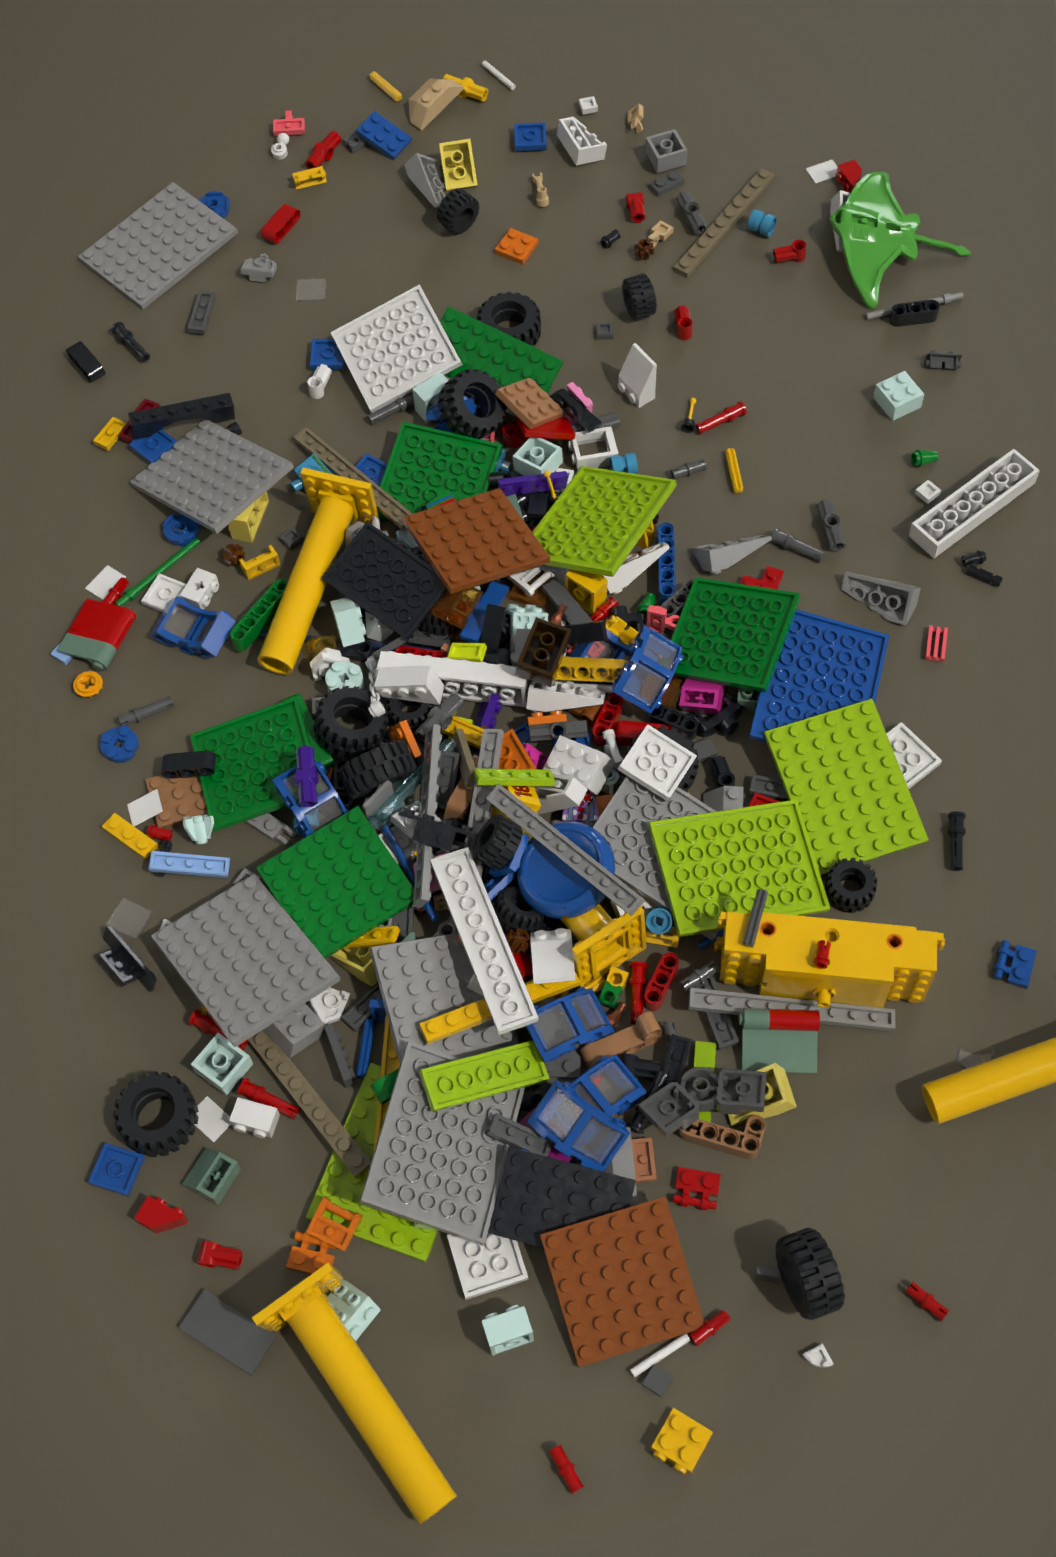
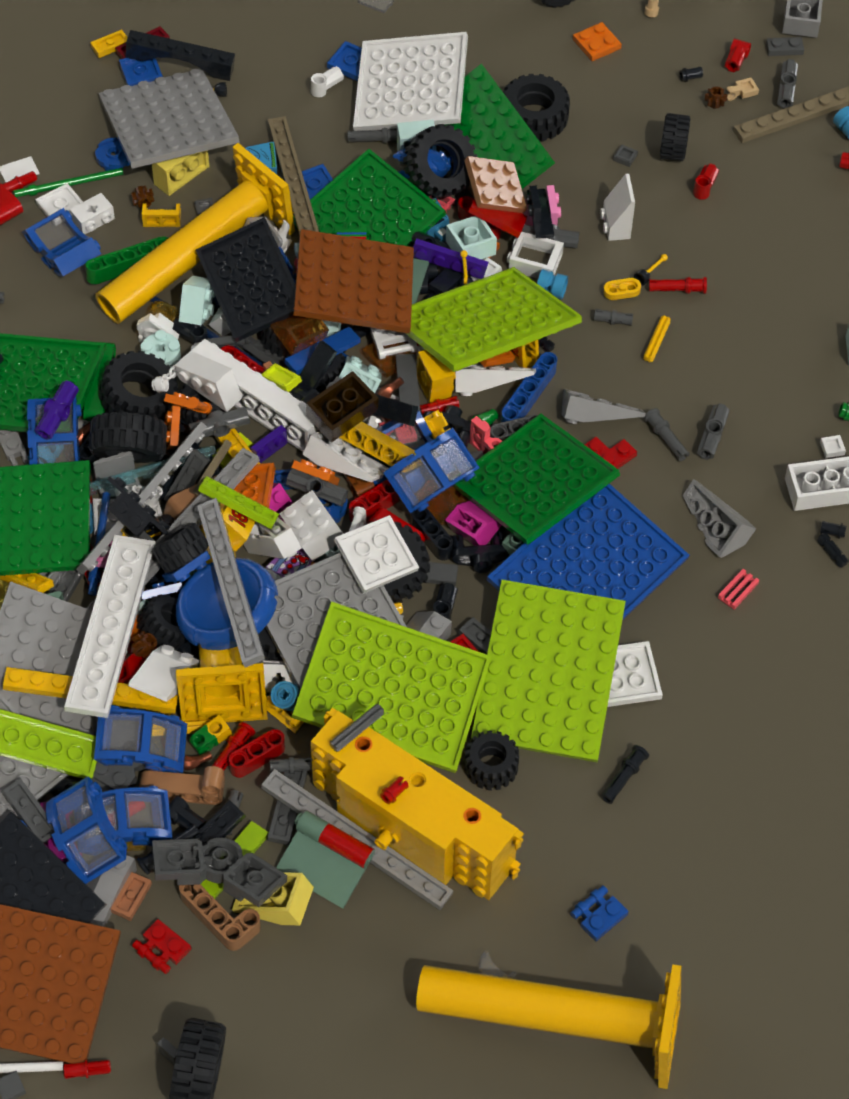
camera: 25 degrees right, 5 degrees down
(404, 714) = (189, 403): none -> orange plate
(677, 443) = (621, 289): none -> yellow plate

